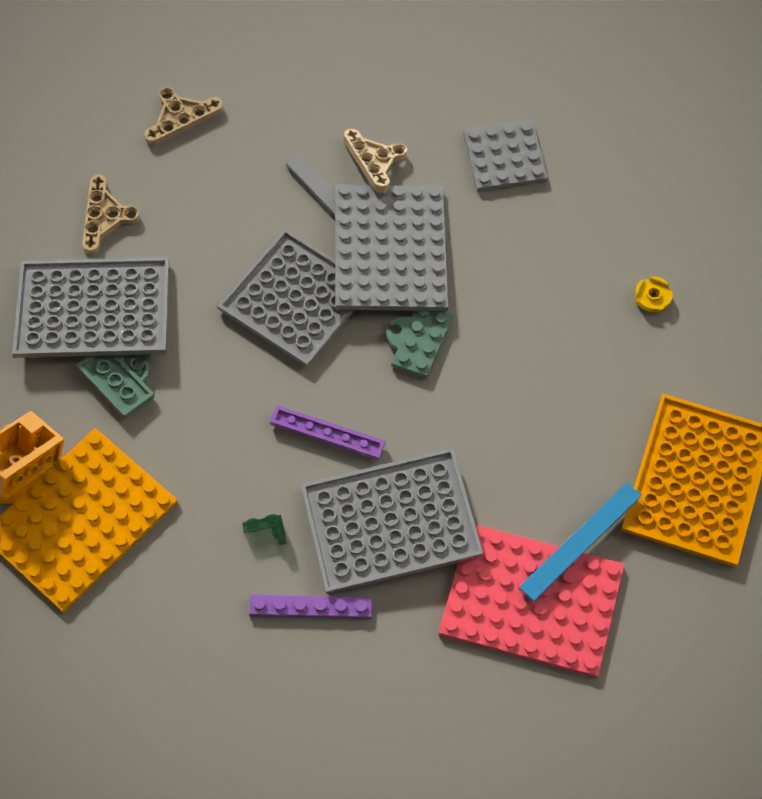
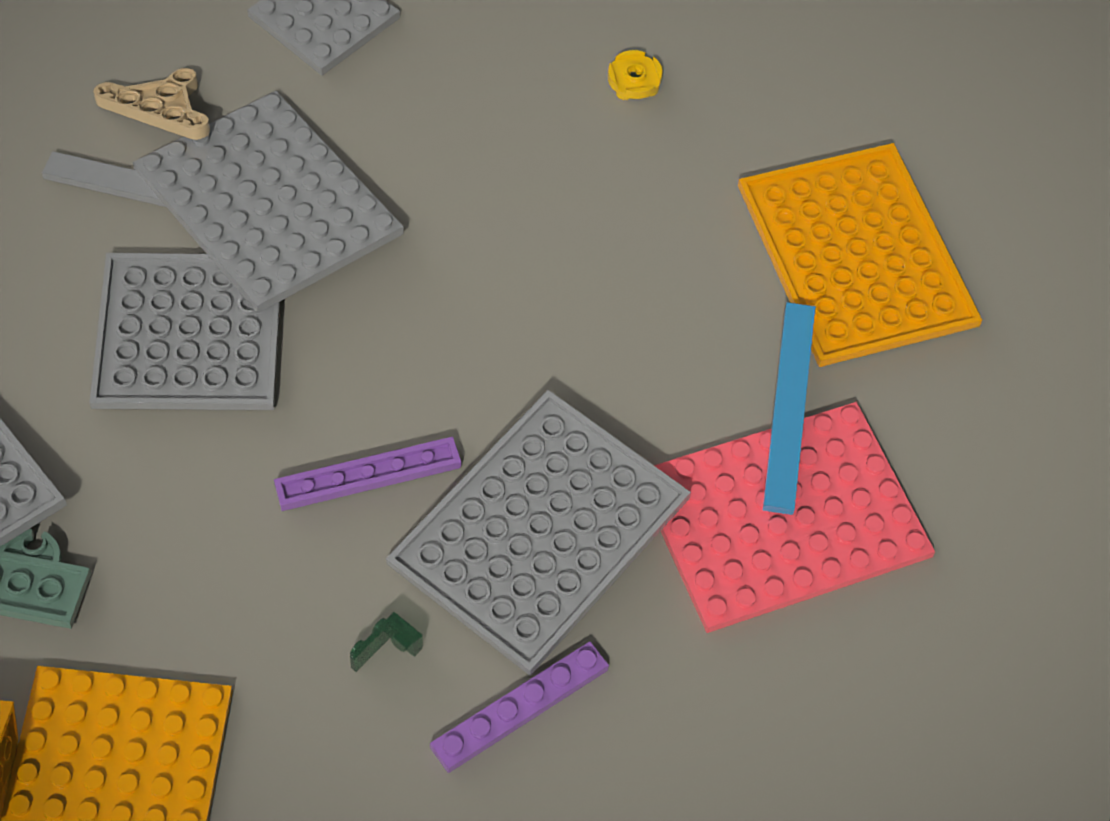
camera: 40 degrees left, 5 degrees down
(418, 340) = (392, 292): sand green plate -> none

